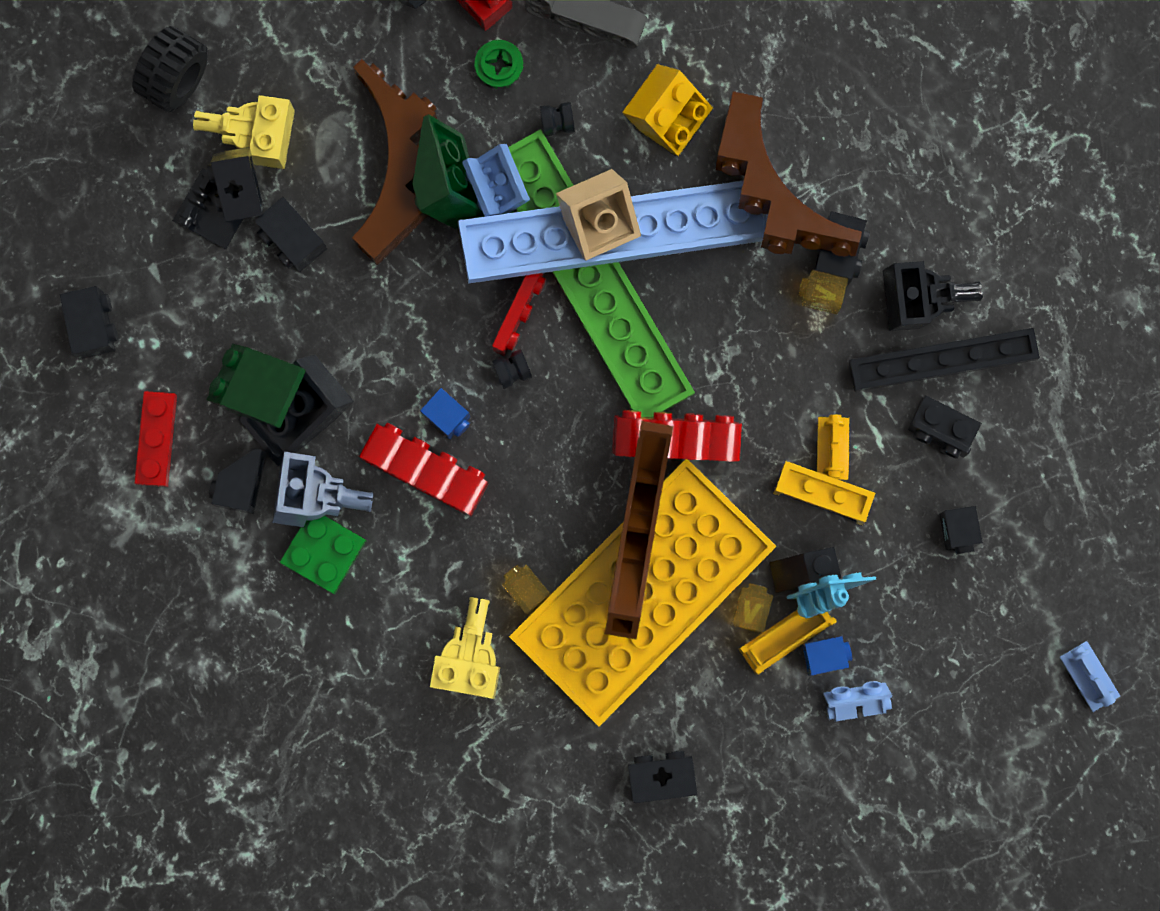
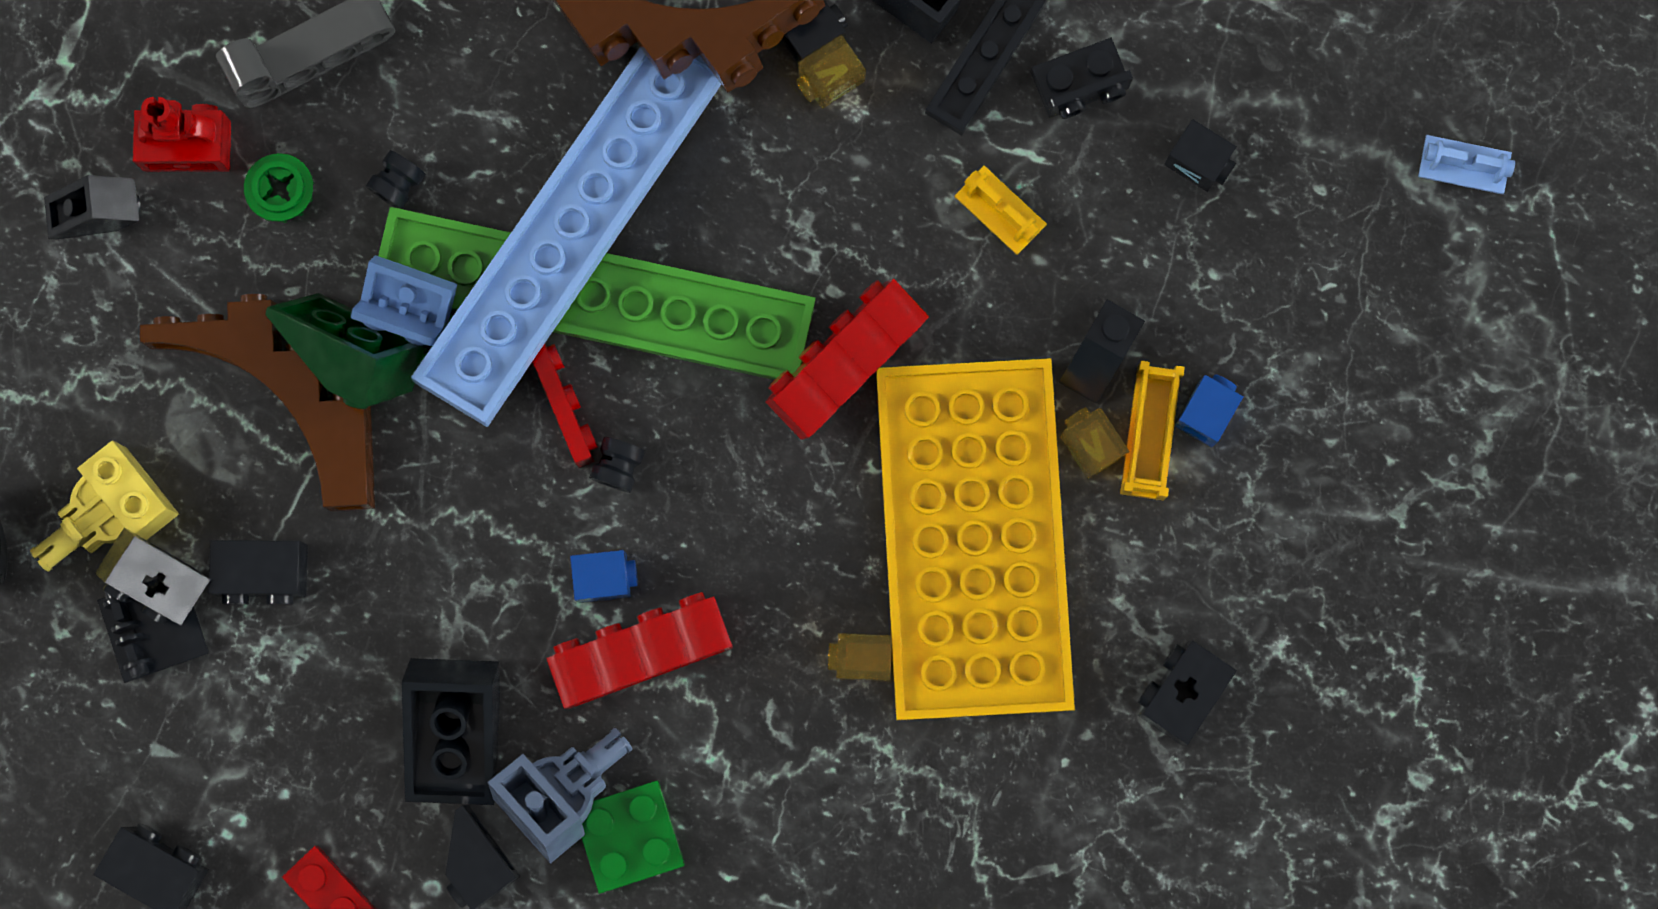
camera: 50 degrees left, 0 degrees up
(255, 385) = (389, 749): dark green slope -> none
(467, 663) = (887, 788): light yellow brick -> none
(599, 214) = (540, 224): tan slope -> none
(638, 530) = (911, 484): reddish brown arch -> none
(668, 109) = (491, 57): yellow slope -> none
(824, 492) = (1040, 258): yellow container -> none
(827, 595) = (1153, 351): medium azure hinge -> none
(872, 696) = (1291, 401): light blue hinge -> none

